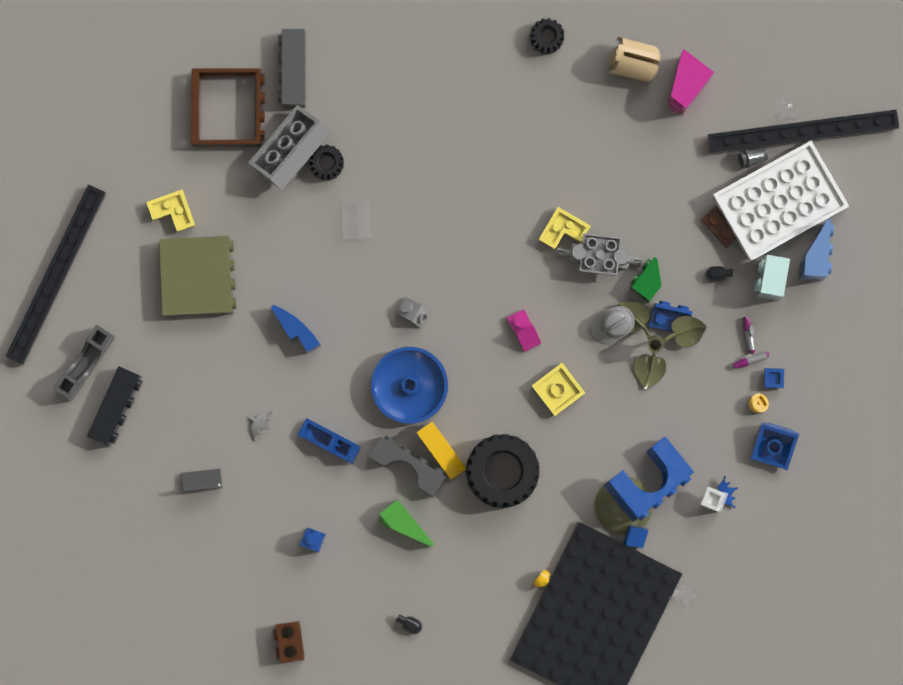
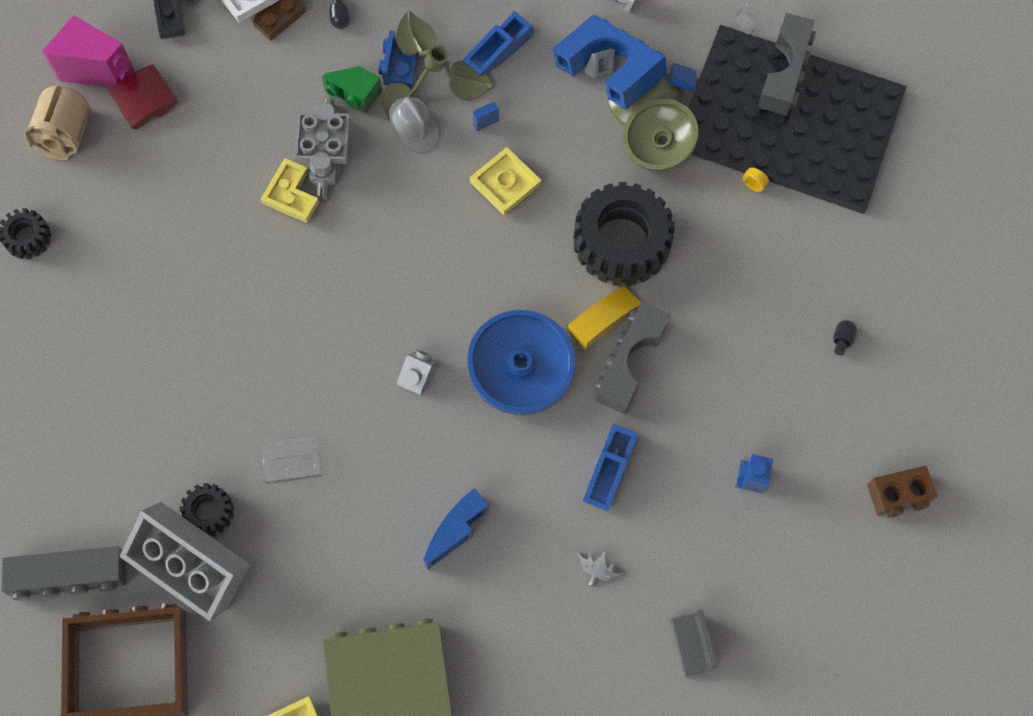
camera: 100 degrees left, 15 degrees down
(402, 522) = (706, 361): bright green slope -> none
(524, 330) = (430, 230): dark pink slope -> none
(579, 498) = (660, 121): none -> olive dish
(611, 607) = (780, 87): none -> dark grey arch
(614, 379) = (485, 116): none -> blue tile
(652, 474) = (601, 64): none -> light grey slope
(655, 121) = (143, 96): none -> dark red slope
(677, 396) = (499, 44): none -> blue slope

